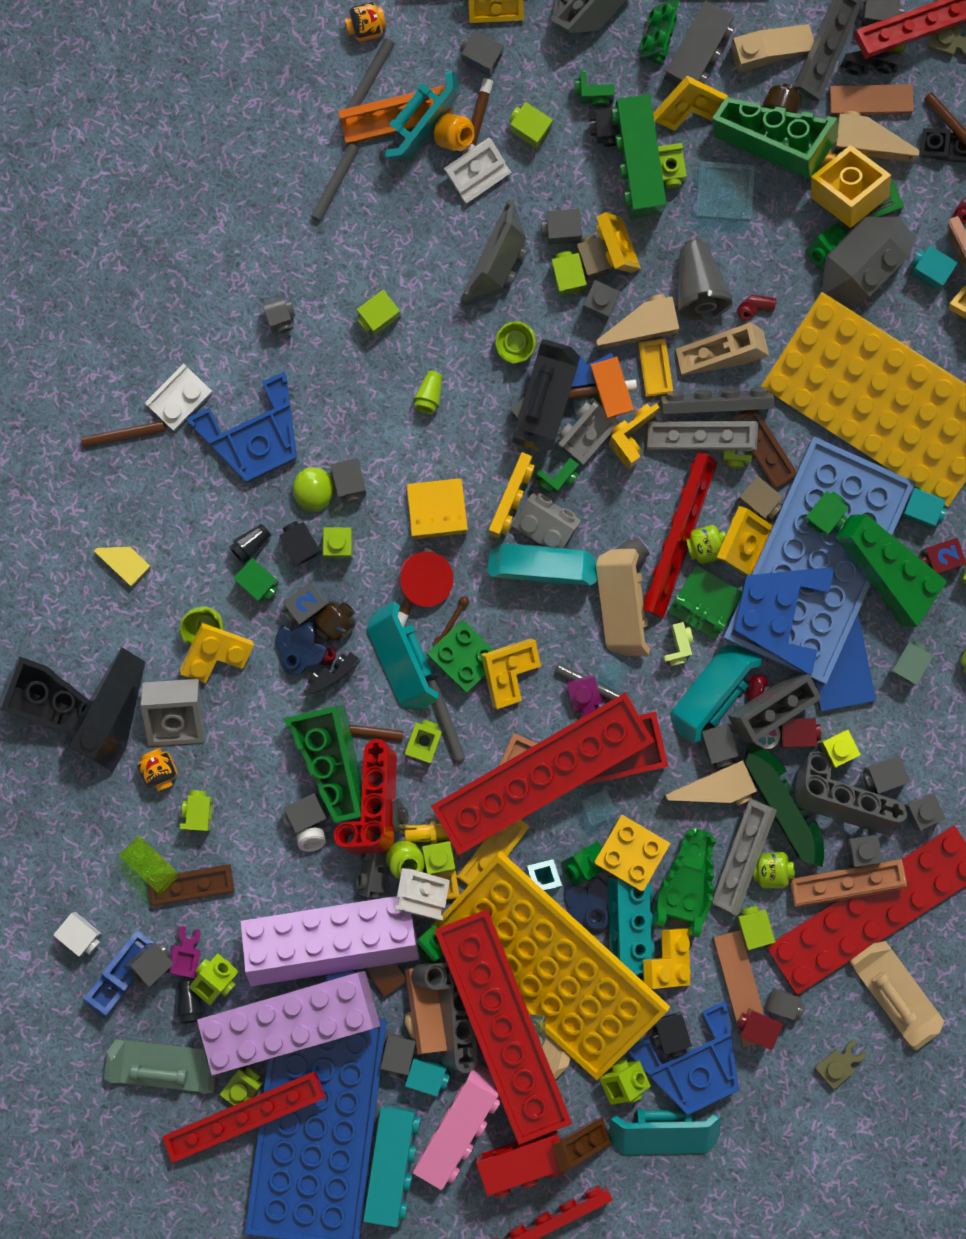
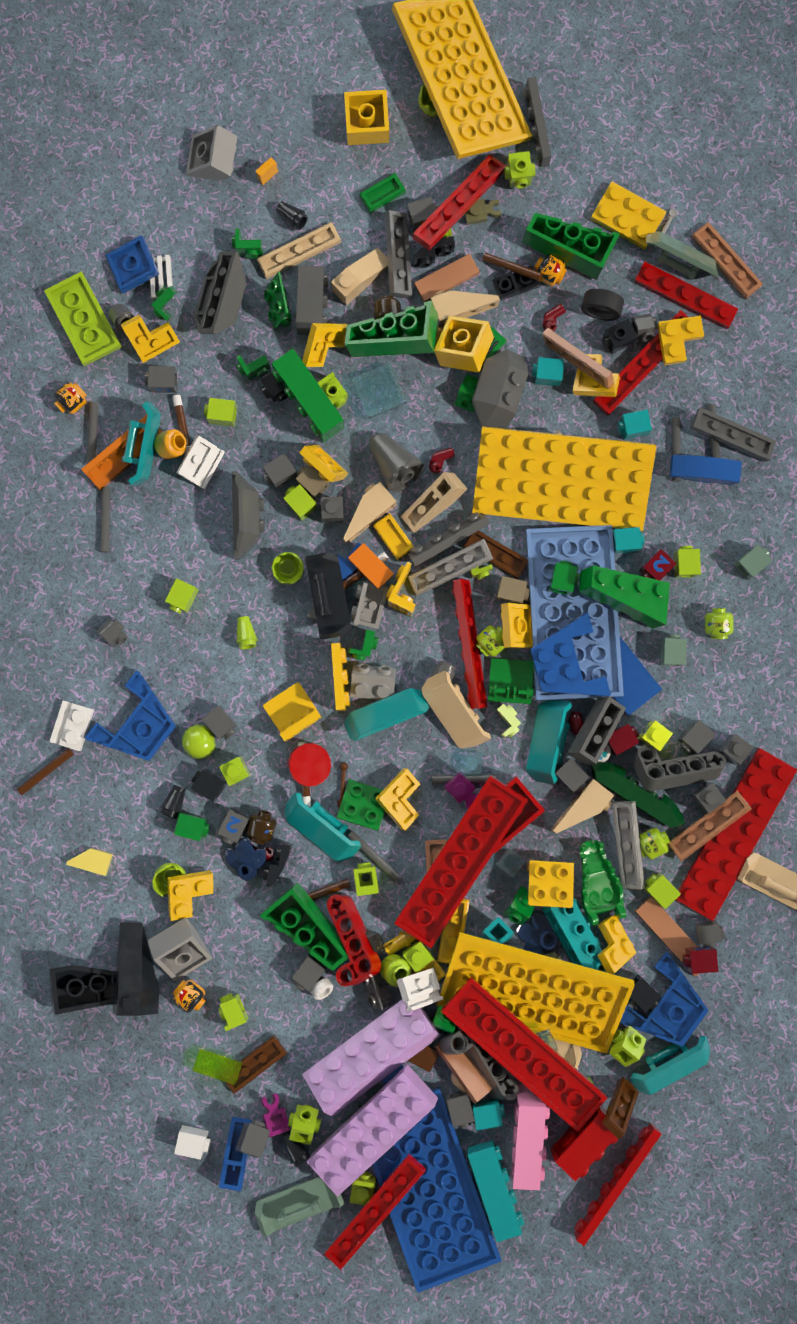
camera: 35 degrees left, 0 degrees up
(836, 1067) = (765, 956): olive plate -> none

